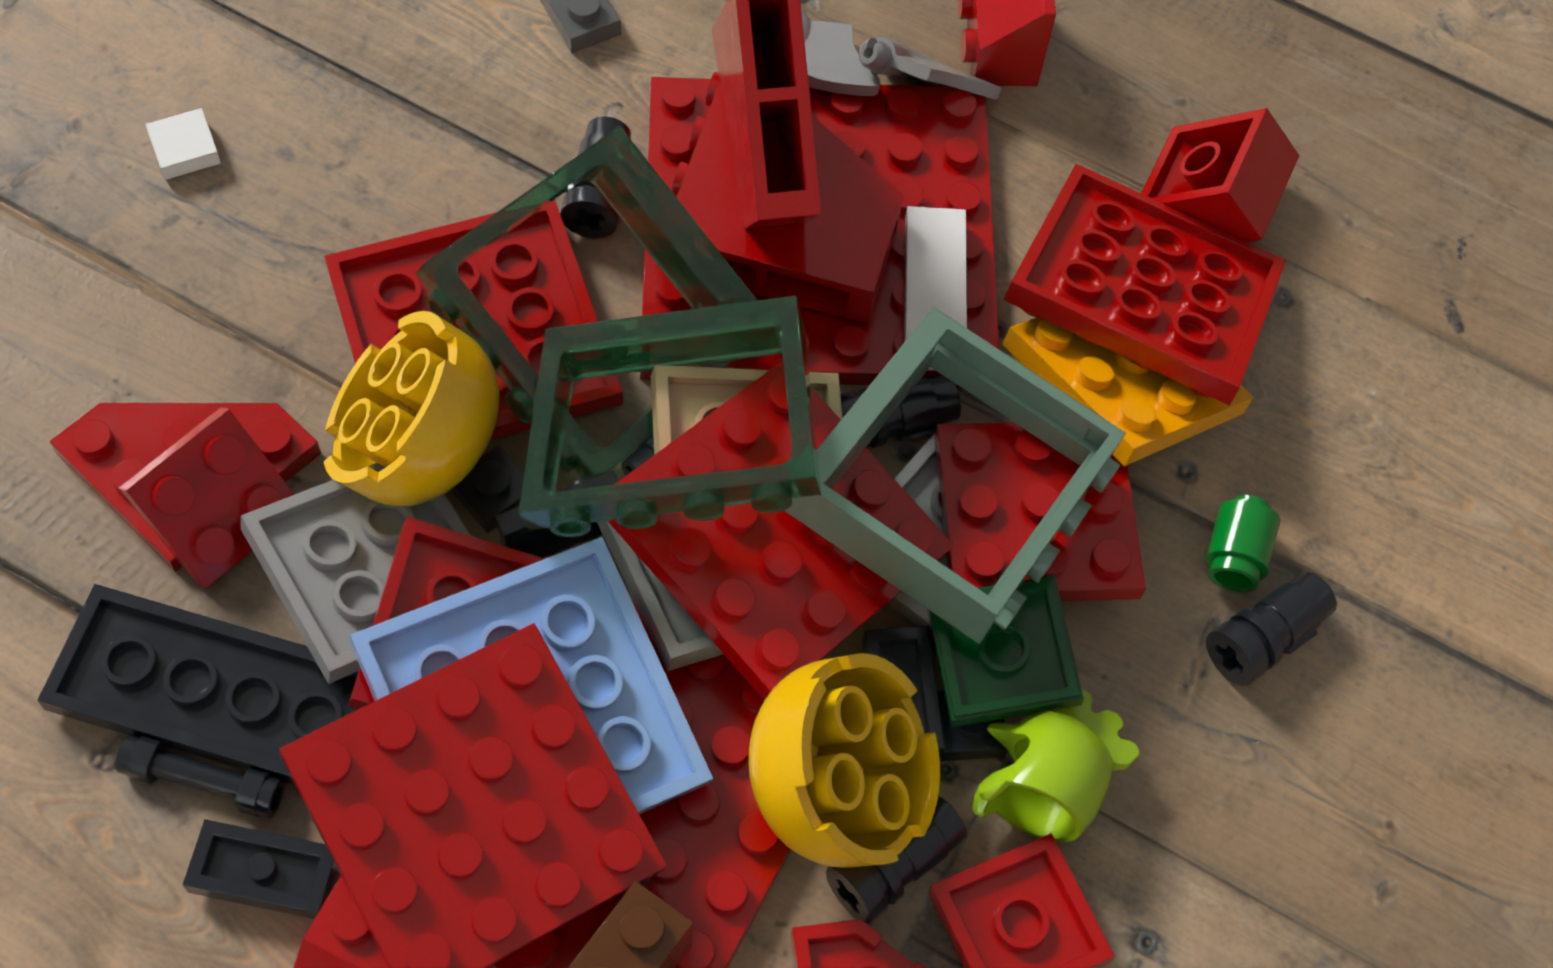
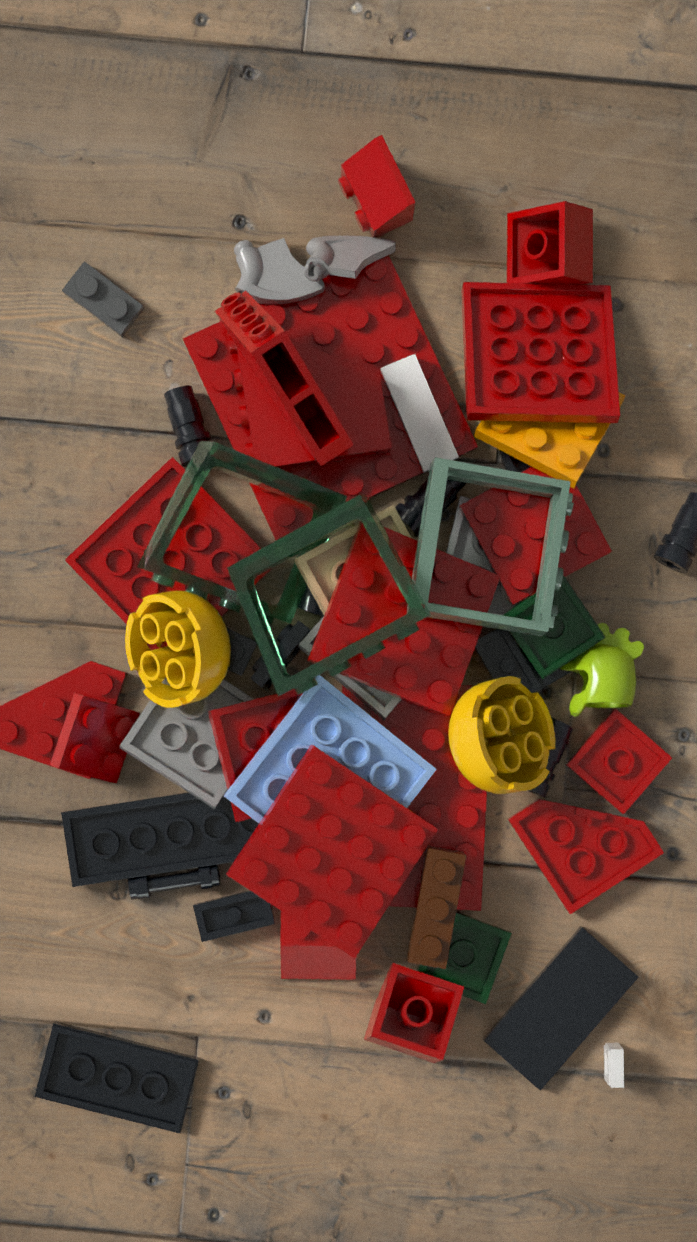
camera: 25 degrees left, 25 degrees up
(1242, 543) = (652, 489): green brick -> none

